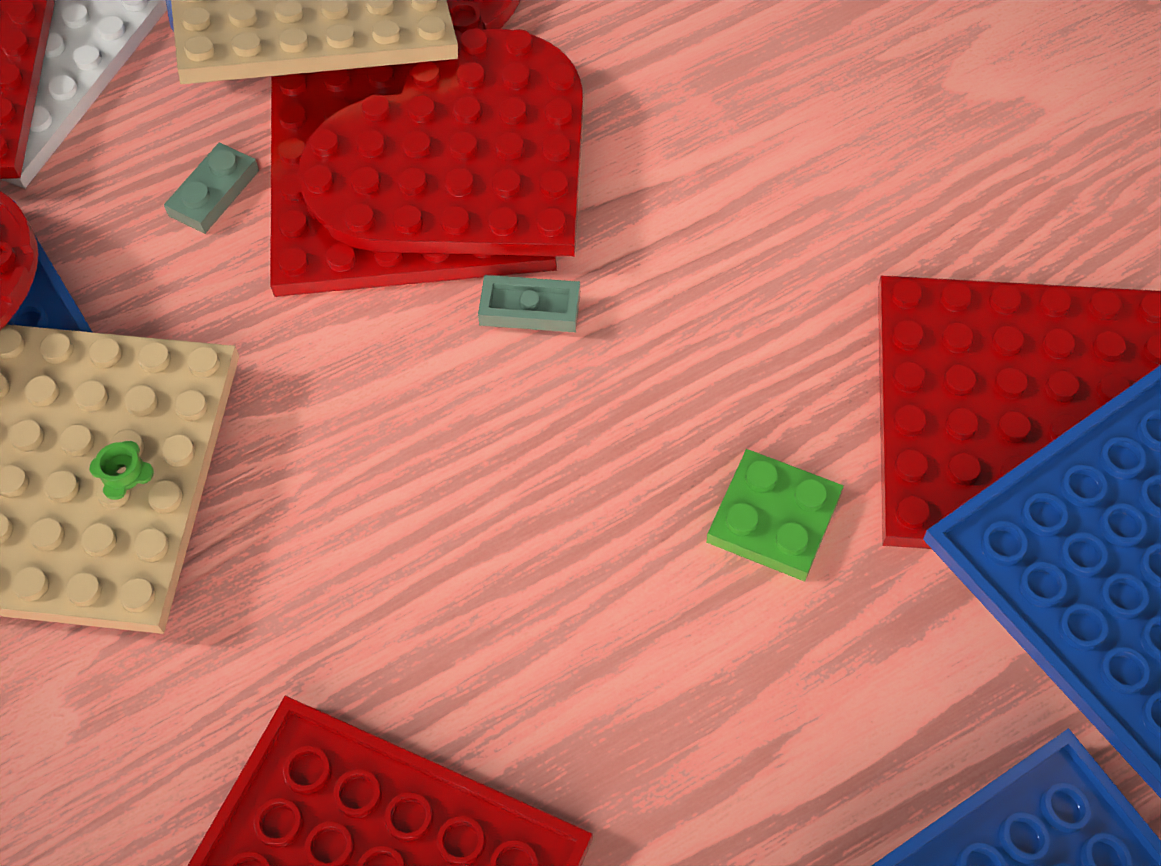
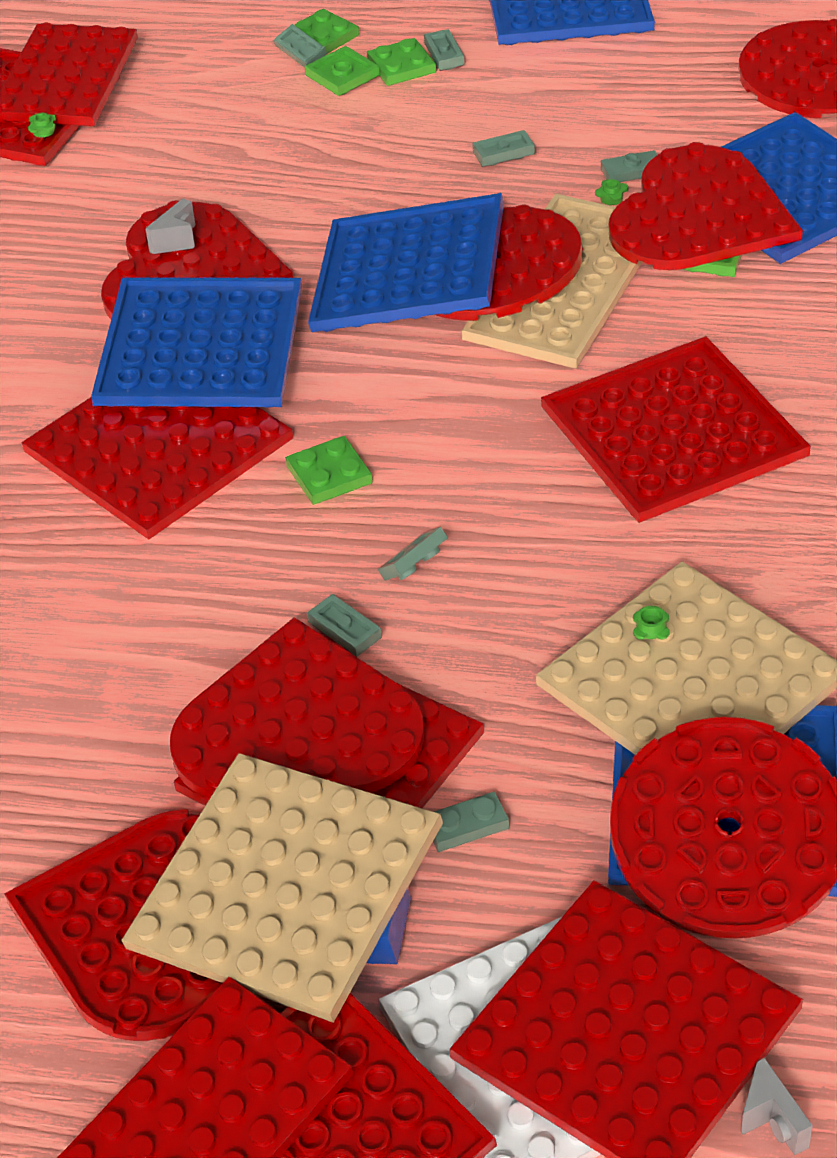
camera: 140 degrees left, 15 degrees down
(535, 441) = (422, 548): none -> sand green plate

